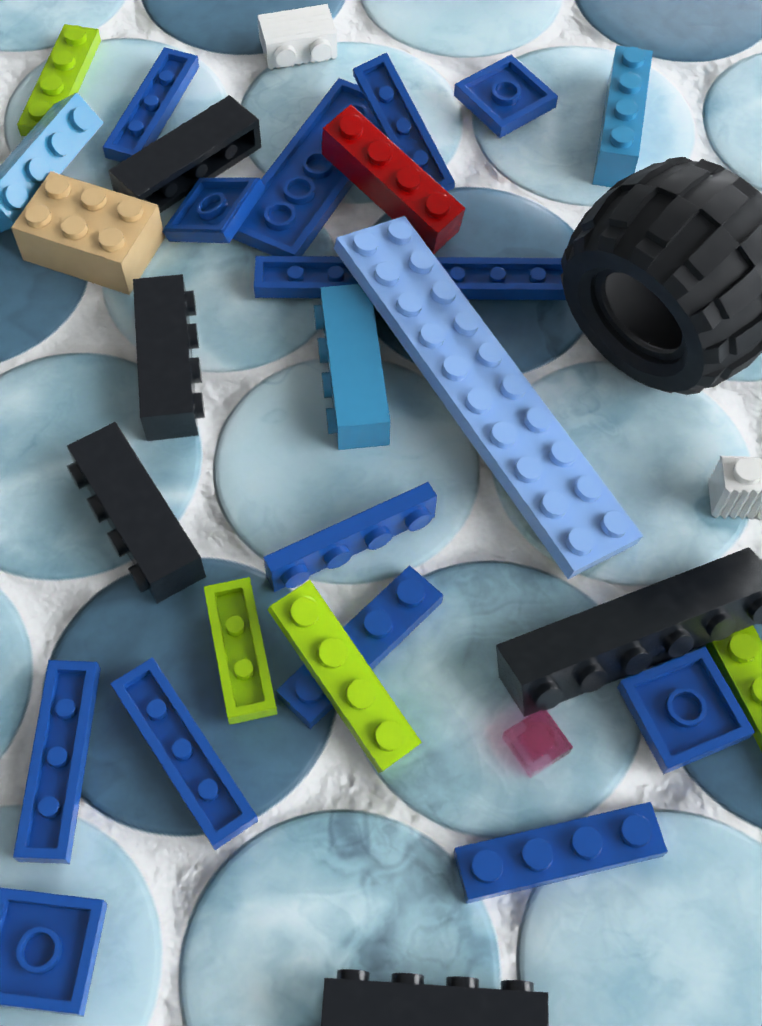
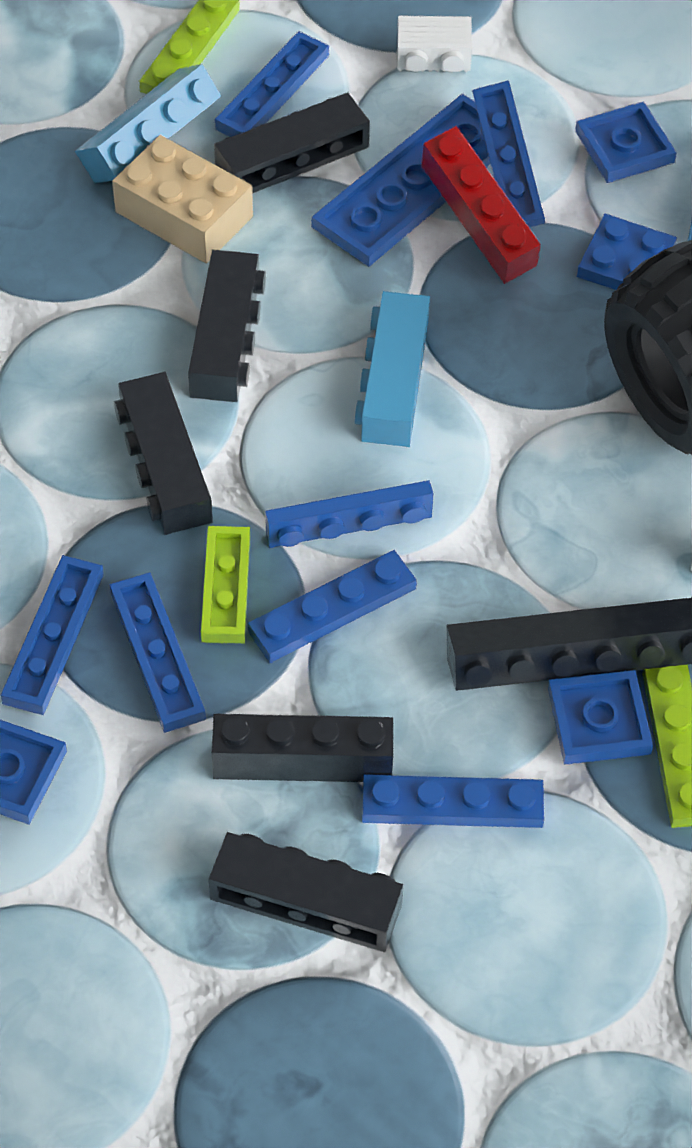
camera: 15 degrees right, 5 degrees down
(214, 210) = (304, 199): blue tile -> none
(344, 676) = (308, 621): lime plate -> none
(379, 834) = (301, 747): none -> black brick
(475, 276) = (469, 298): blue plate -> none
(488, 397) = (509, 417): light blue plate -> none
(537, 742) = (462, 715): clear pink plate -> none
(541, 205) = (619, 249): none -> blue plate

